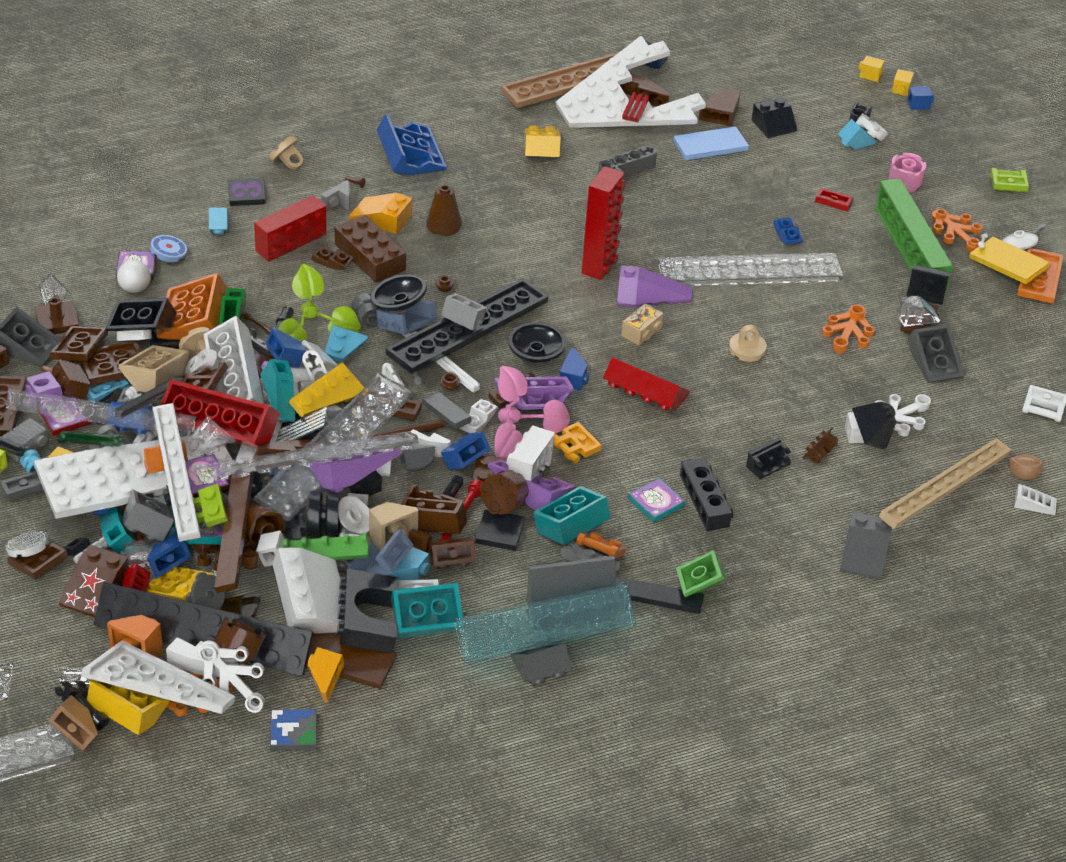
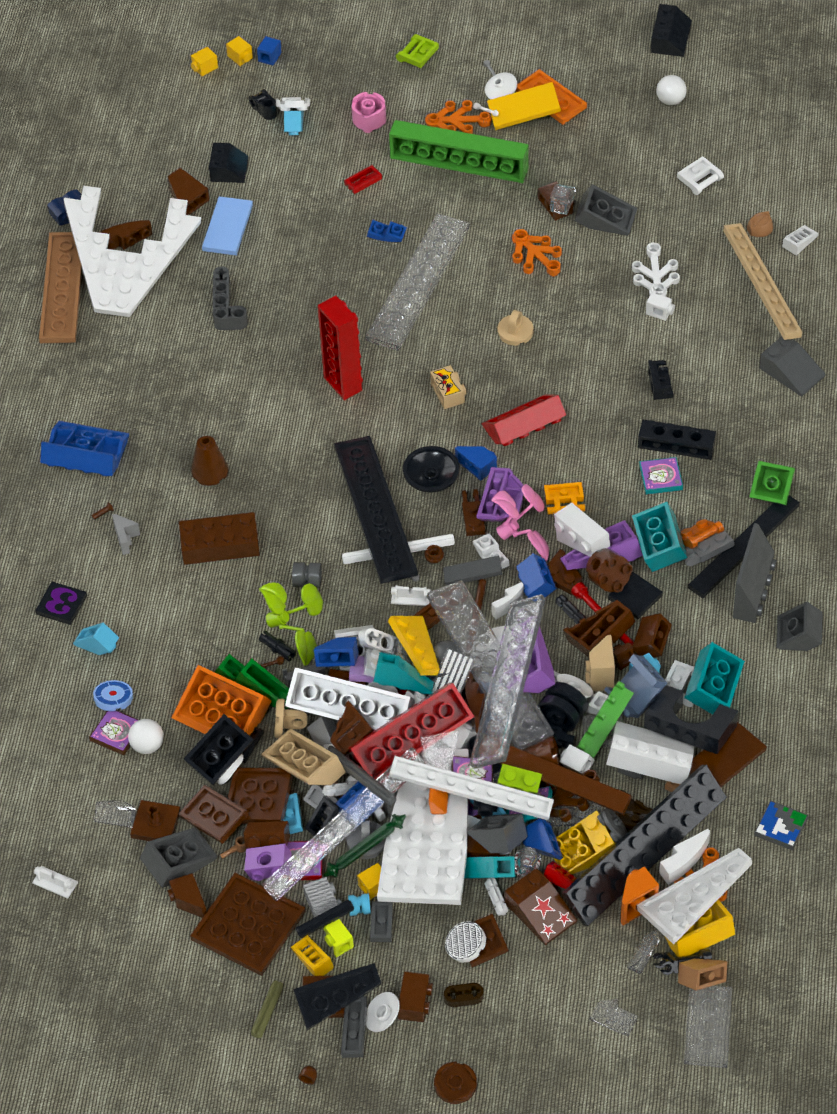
camera: 55 degrees left, 10 degrees up
(77, 546) = (487, 905): black tile -> none
(202, 360) = (328, 721): white beam -> none
(229, 672) = (702, 841): white plant -> none
(239, 634) = (691, 818): reddish brown brick -> none
(285, 151) = (29, 547): tan tile -> none
(290, 228) = (158, 586): red brick -> none
(325, 671) = (740, 777): light orange slope -> none
(335, 260) = (209, 574): reddish brown slope -> none
(343, 343) = (336, 611): medium azure wing -> none
(386, 211) = (167, 507): light orange slope -> none
(399, 292) = (311, 530): black dish -> none
(414, 317) = (338, 546): sand blue panel -> none
(444, 283) = (298, 503): reddish brown plate -> none
(463, 311) = (368, 501): light grey hinge -> none
(542, 141) = (144, 344): yellow slope -> none
(545, 622) = (775, 605): clear light blue brick -> none
(638, 98) = (143, 246): red tile -> none
(642, 286) = (400, 363): medium lavender wedge -> none
(819, 450) = (663, 339): reddish brown hinge -> none
(875, 423) = (672, 287): black slope -> none
(928, 284) = (526, 173): black tile -> none

